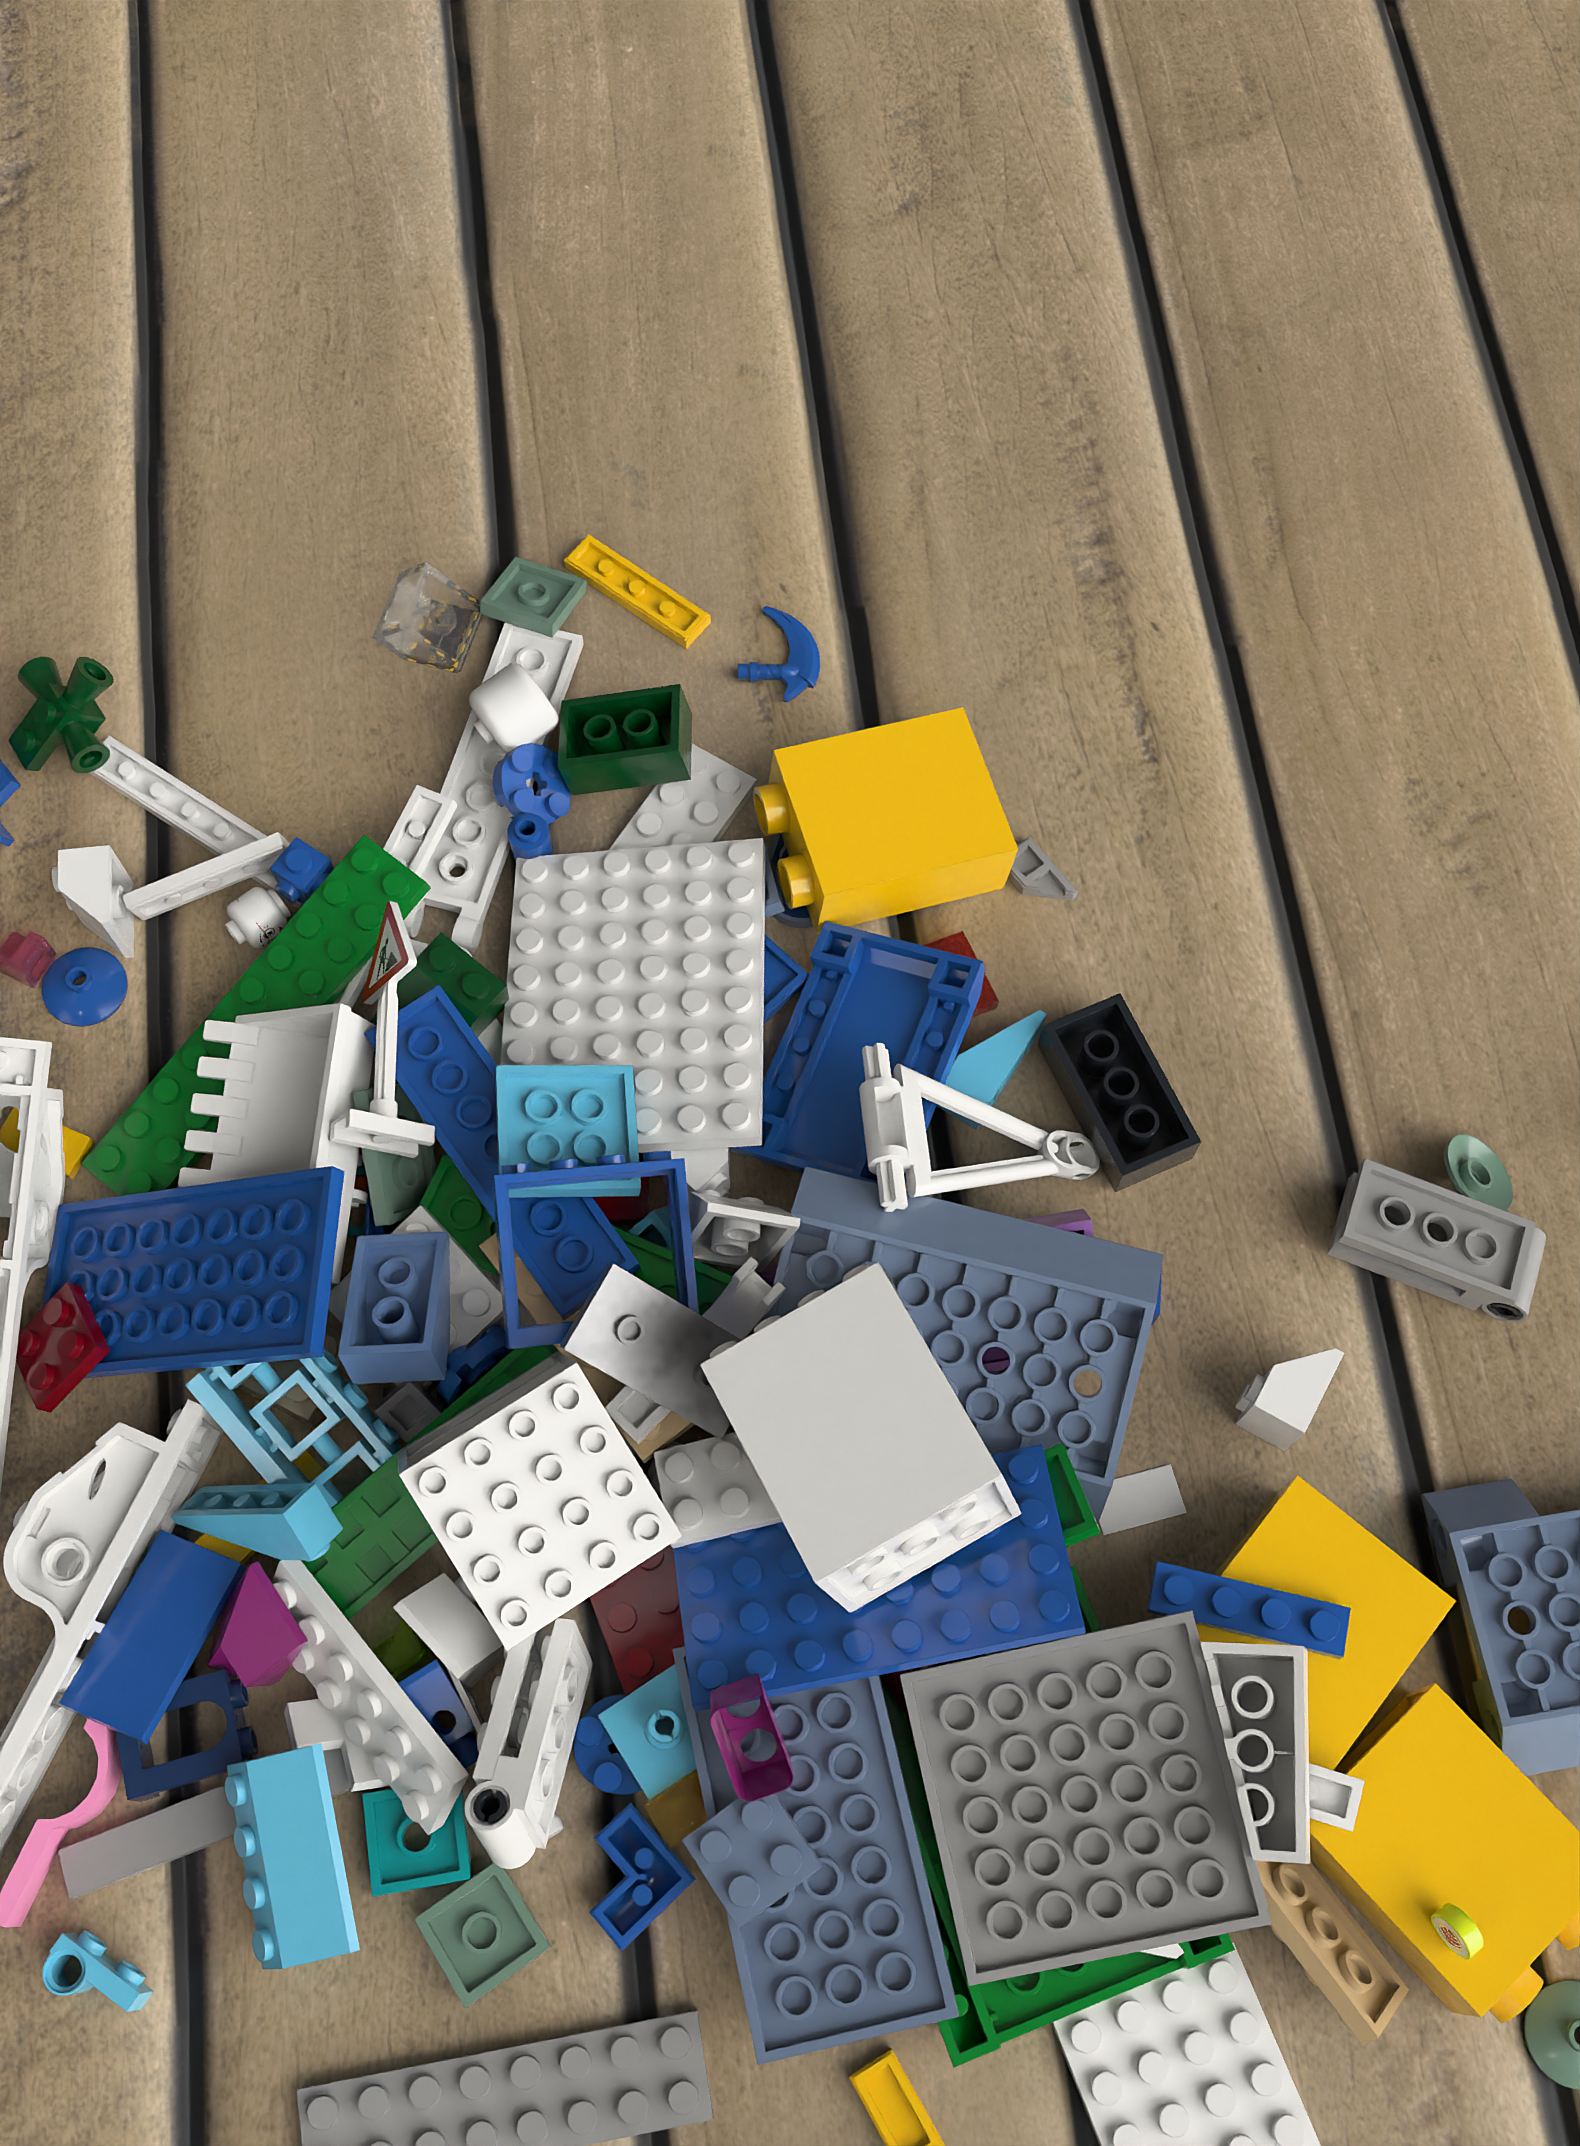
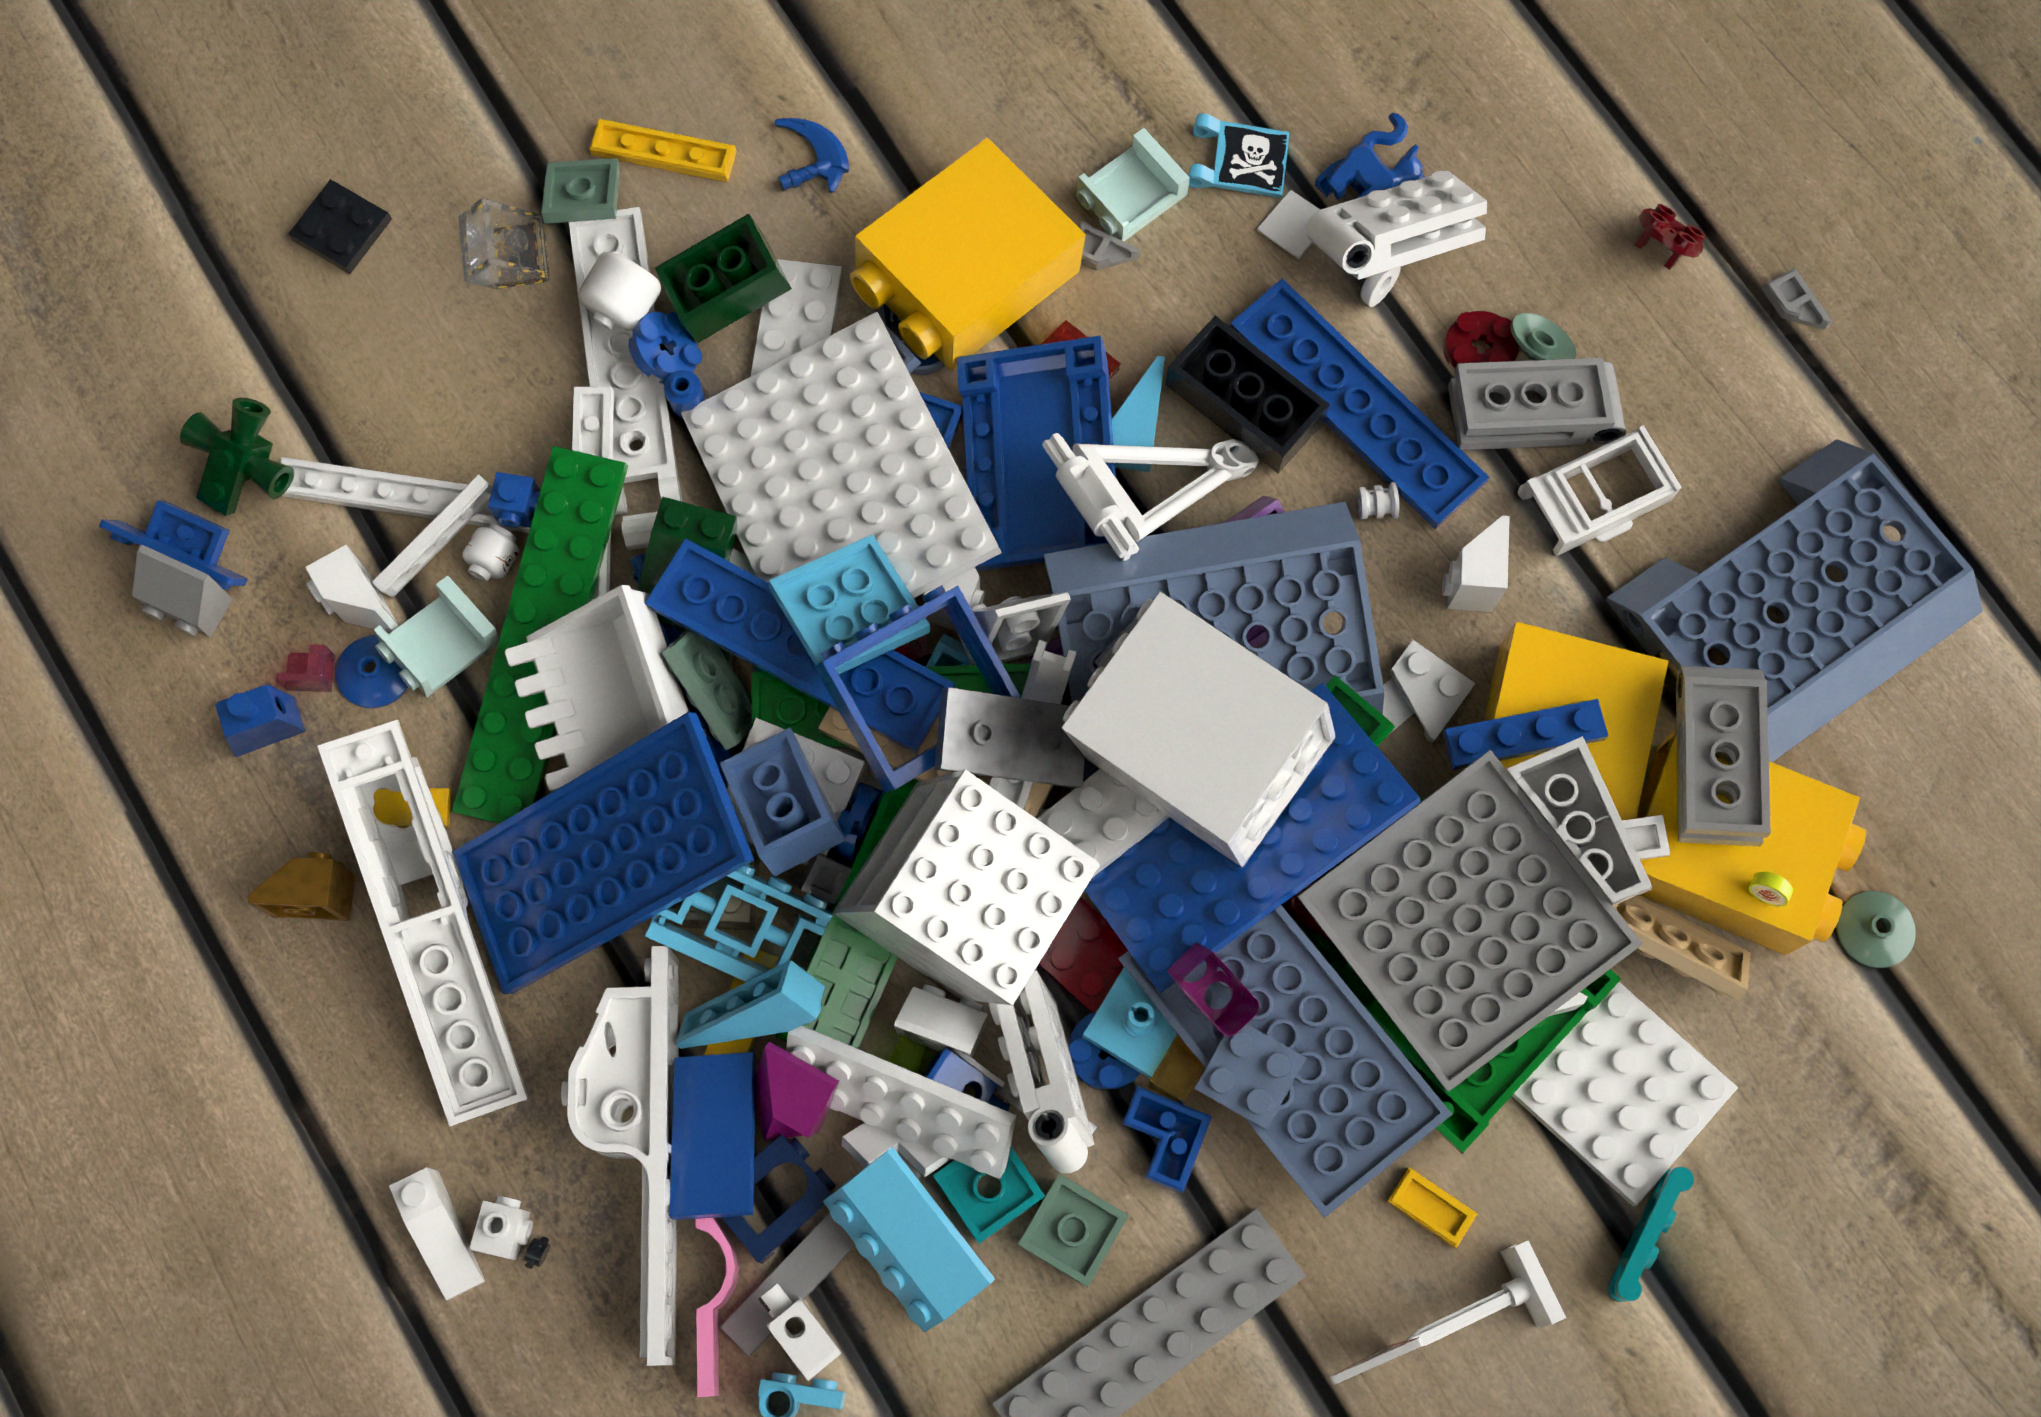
camera: 25 degrees left, 5 degrees up
(59, 1347) = (520, 957): dark red plate -> none
(123, 1923) = (812, 1346): none -> white torso
(157, 983) = (438, 640): none -> light aqua panel
(285, 537) = (340, 226): none -> black plate
(381, 1127) = (636, 538): white piece -> none
(1101, 825) = (1133, 187): none -> light aqua panel
(1173, 1504) = (1430, 687): none -> white wing
(1210, 1271) = (1378, 501): none -> white bush
(1237, 843) = (1245, 157): none -> flag
(1242, 1159) = (1364, 404): none -> blue plate
(1263, 936) = (1287, 229): none -> white piece
(1364, 917) = (1364, 168): none -> blue animal
(1369, 981) = (1399, 224): none -> white hinge
(1414, 1129) = (1484, 327): none -> dark red plate
(1417, 1379) = (1566, 512): none -> white piece
(1493, 1700) = (1727, 718): none -> light grey hinge

